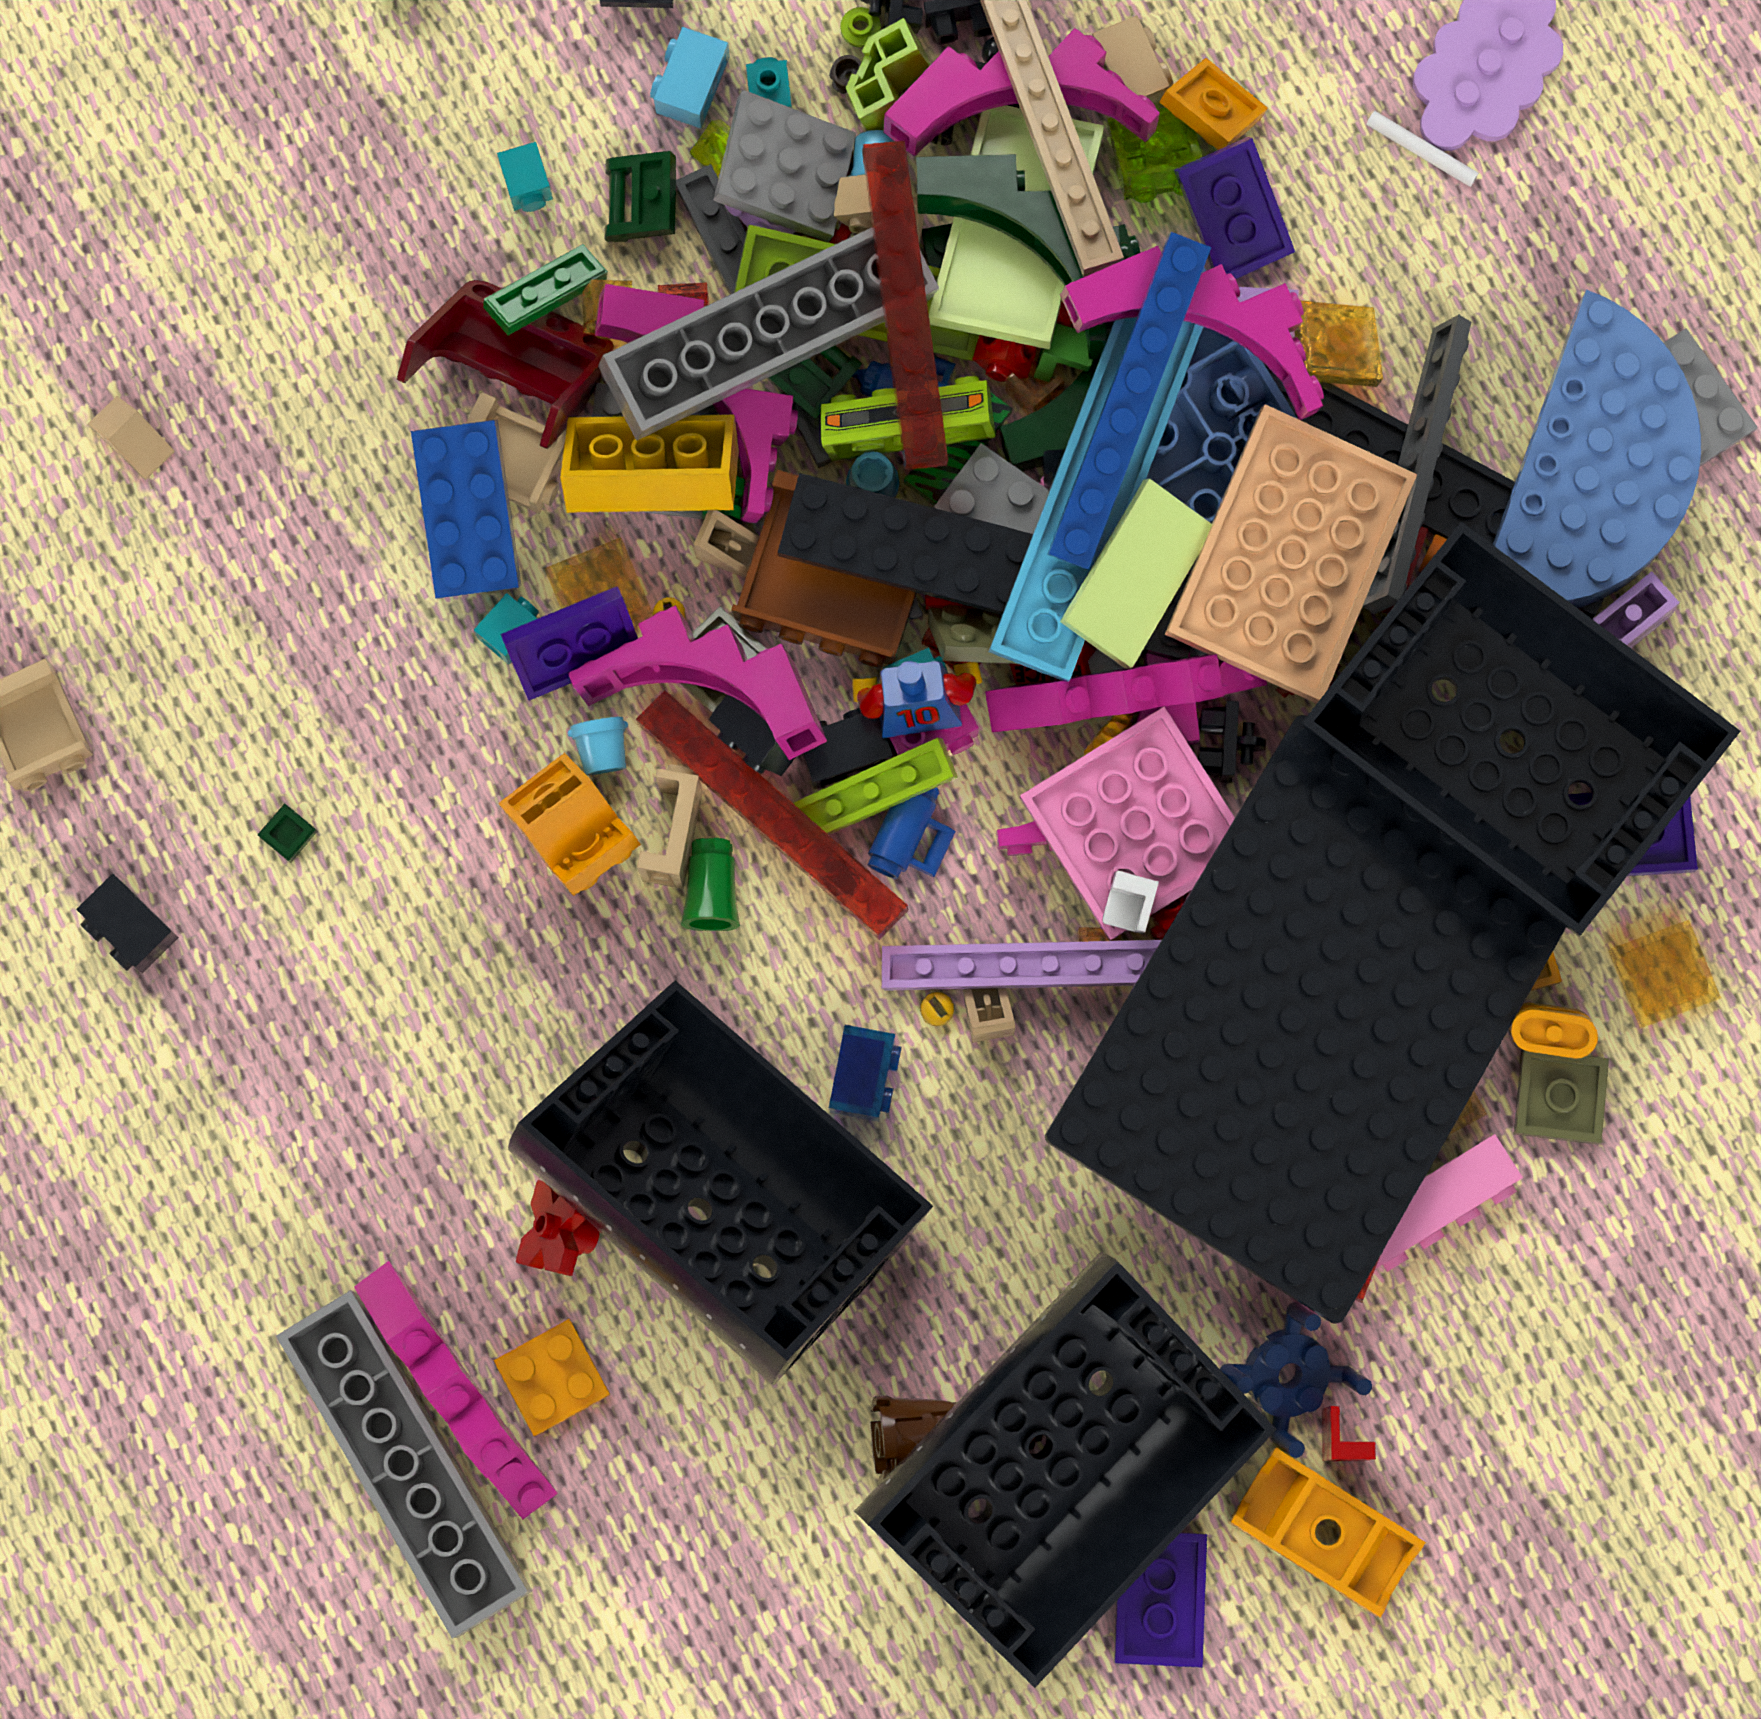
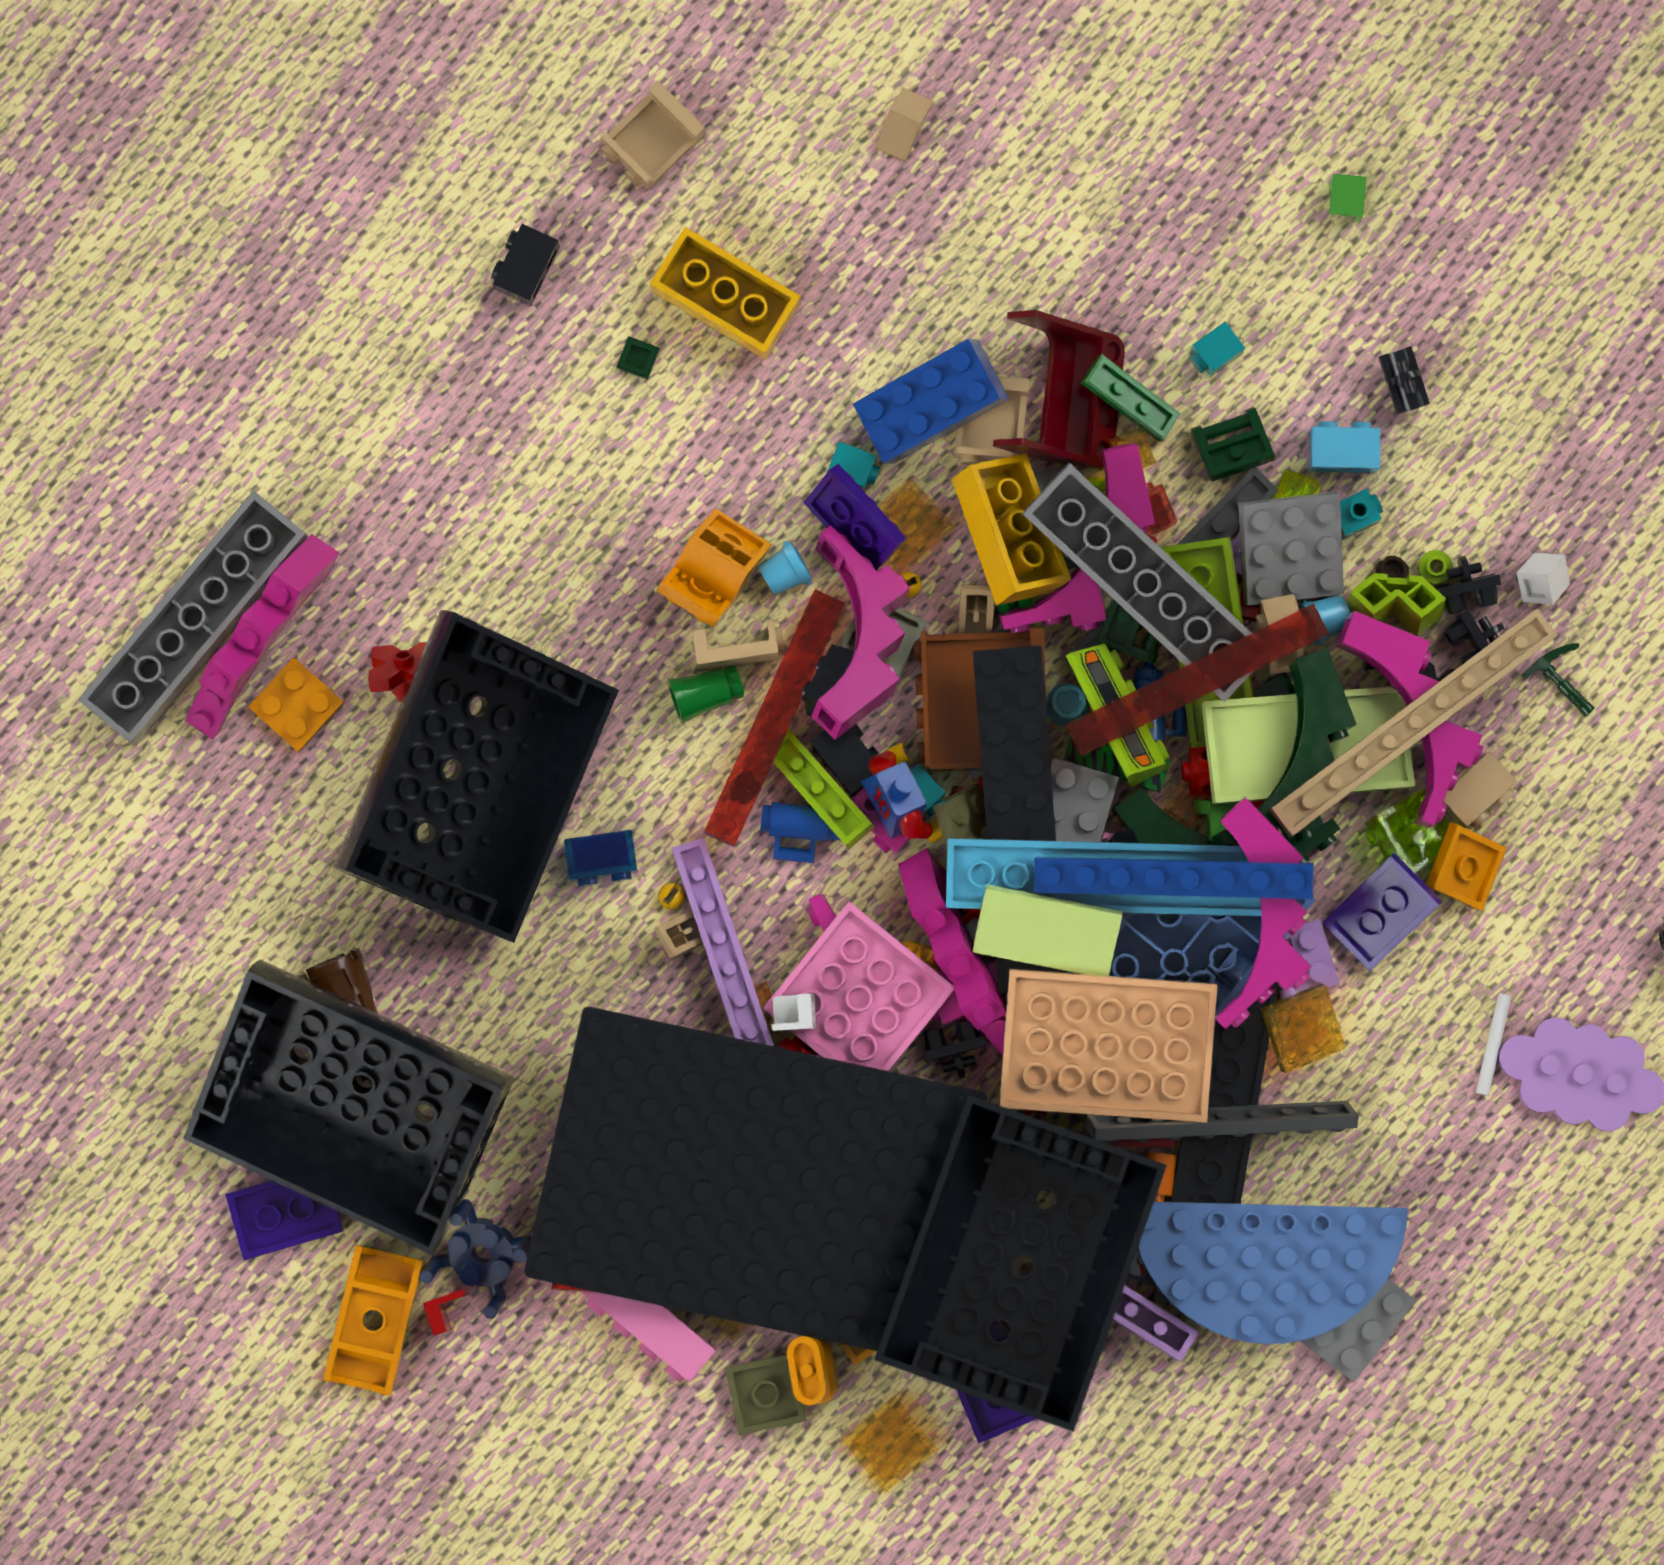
camera: 70 degrees right, 5 degrees up
(250, 702) = (725, 293): none -> yellow brick

